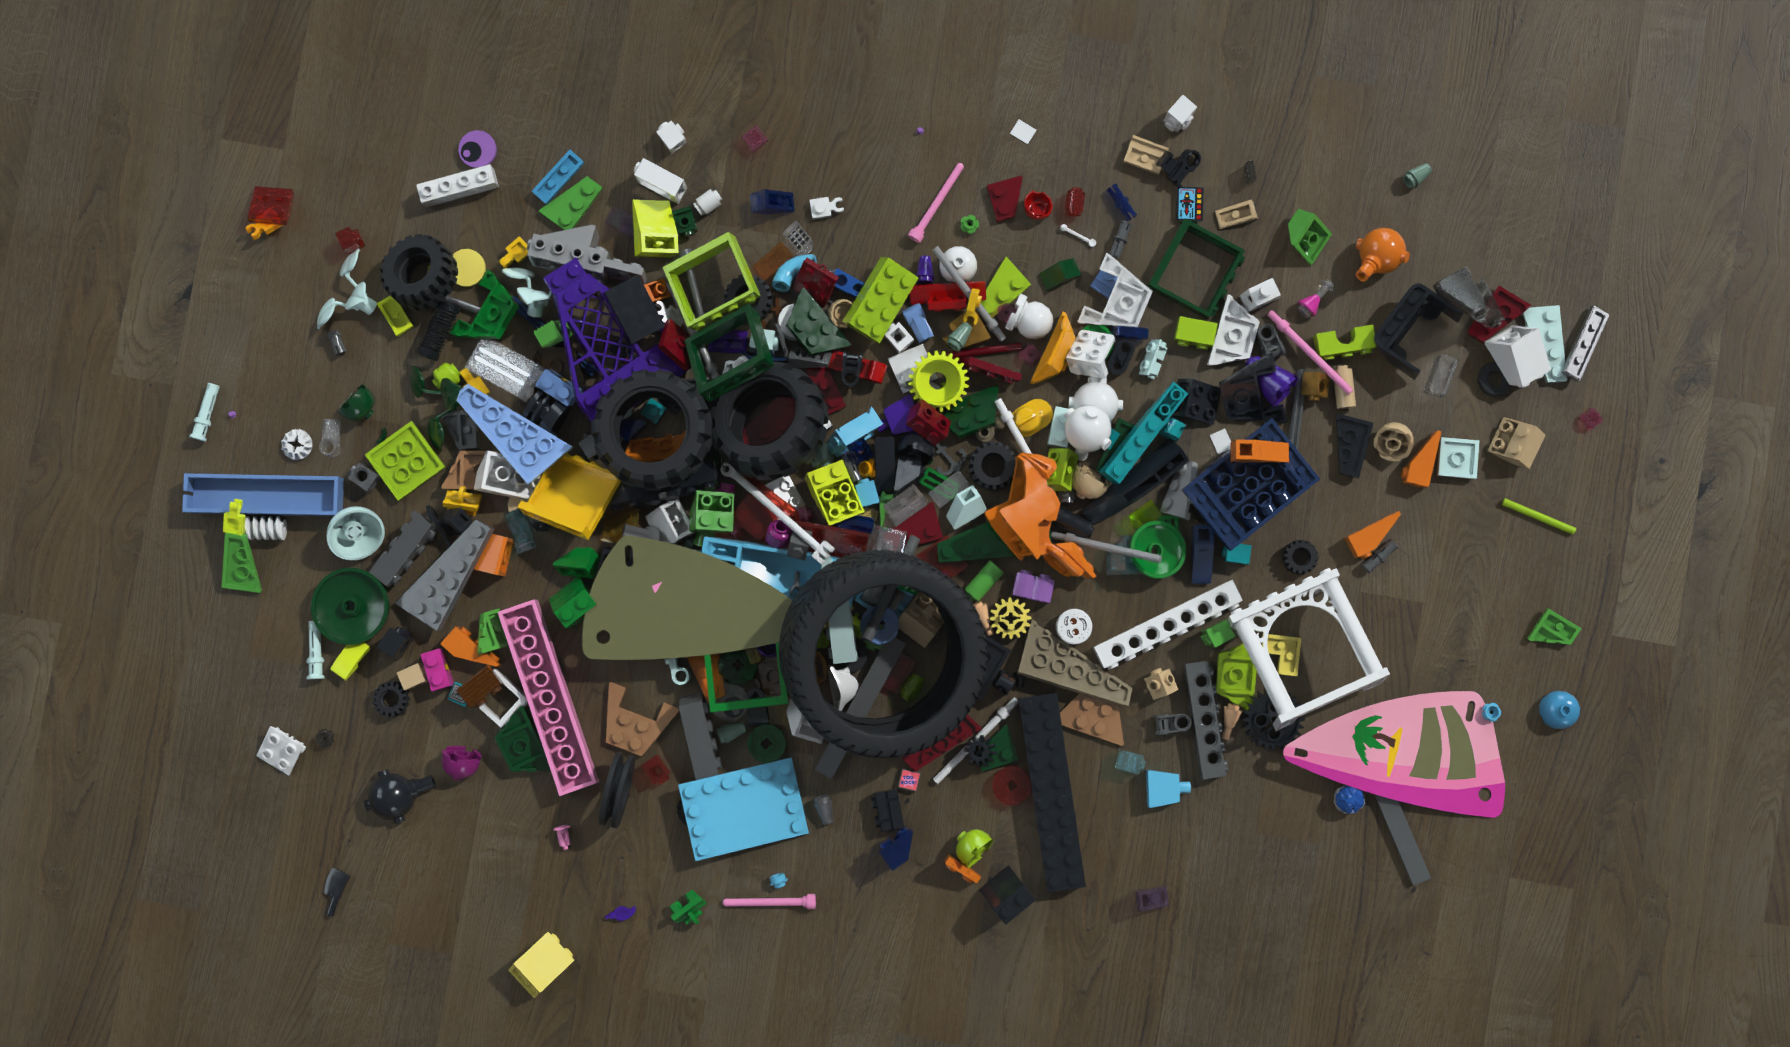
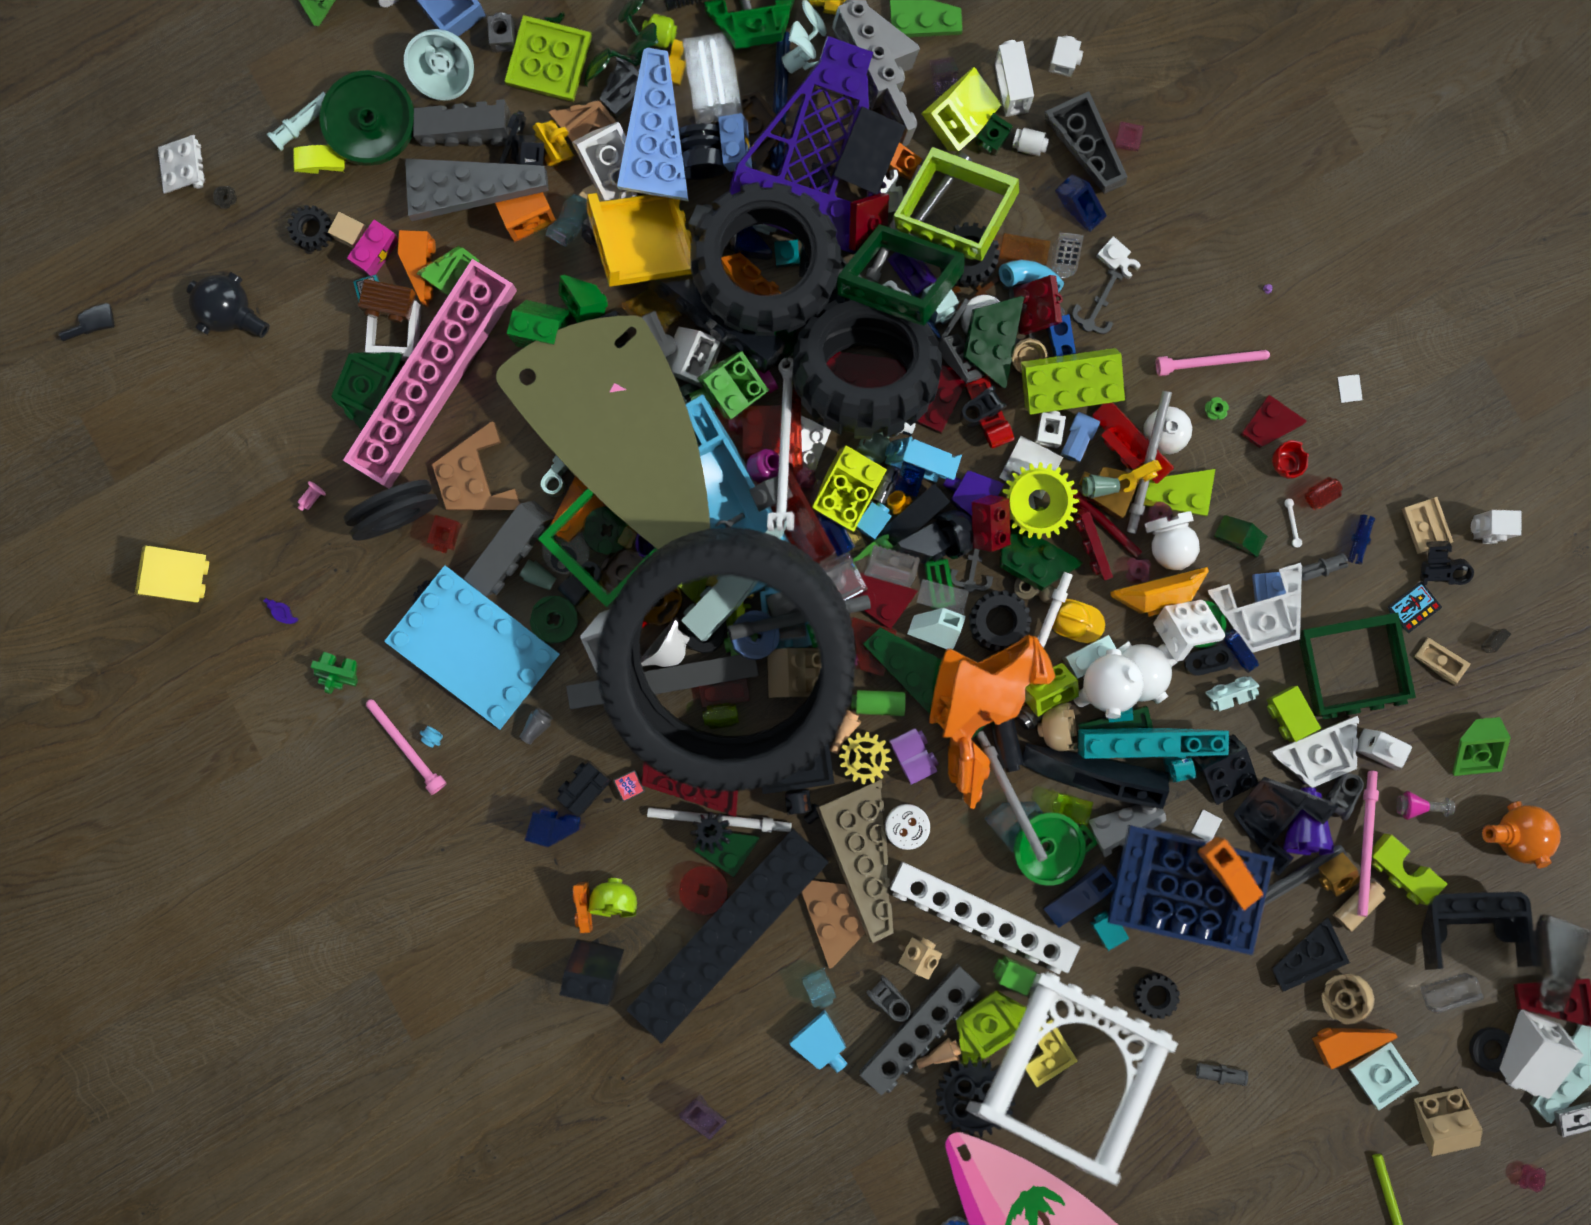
camera: 55 degrees right, 0 degrees up
(395, 642) = (366, 187): black brick -> none
(460, 763) = (301, 340): magenta cylinder -> none
(550, 334) = (778, 91): bright green brick -> none
(731, 165) = (1087, 139): none -> dark grey wedge
(852, 259) = (1089, 325): none -> dark grey piece
(925, 271) = (1136, 402): dark purple cone -> none
(1368, 538) = (1233, 1050): orange slope -> none

